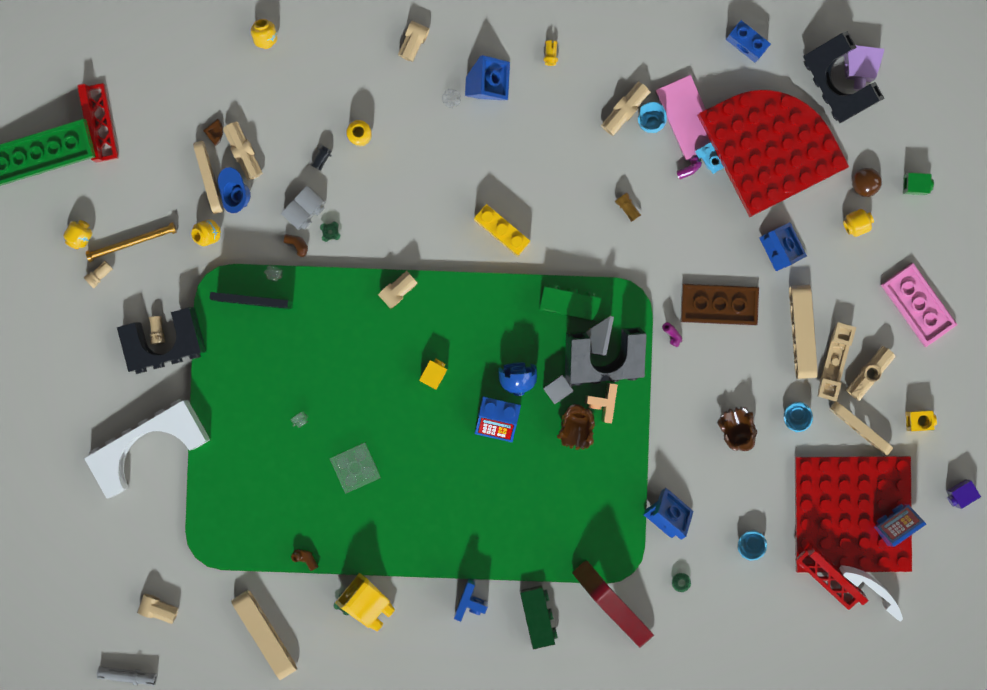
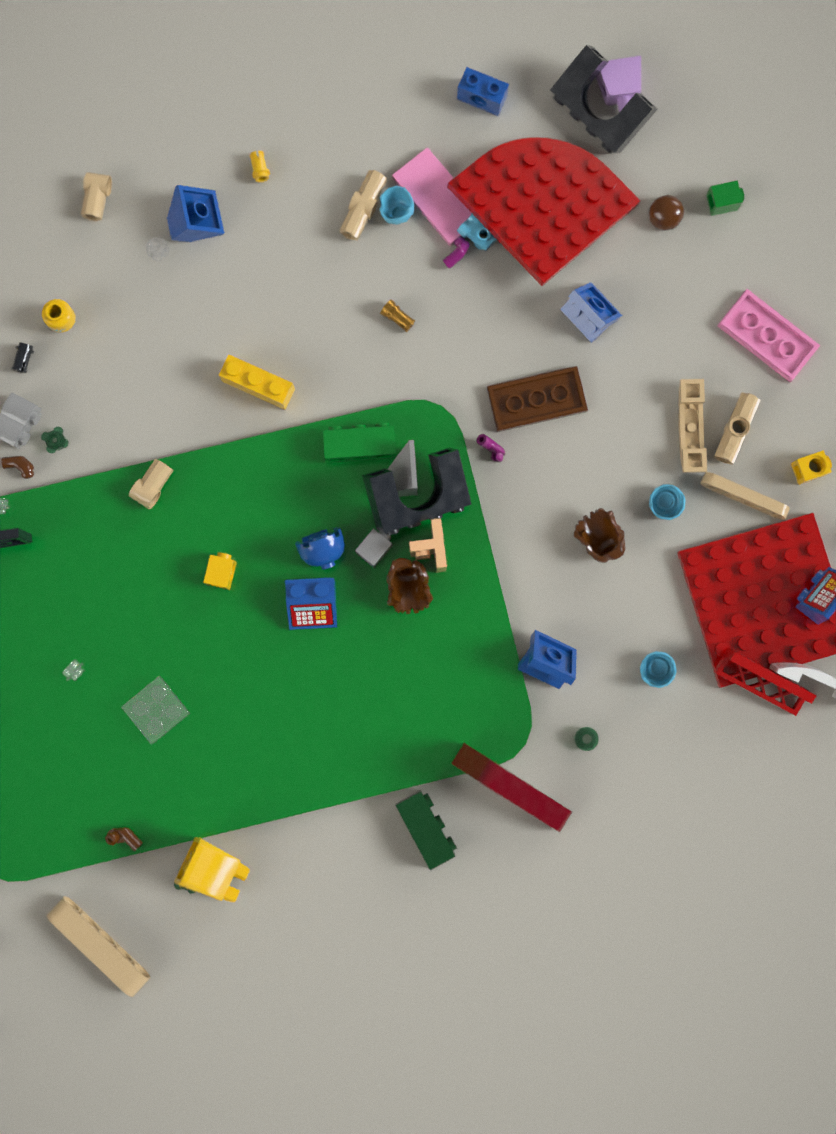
camera: 15 degrees left, 5 degrees down
(467, 600) = (333, 833): blue bracket -> none
(803, 331) = (643, 402): tan beam -> none
(858, 222) = (670, 260): yellow head -> none

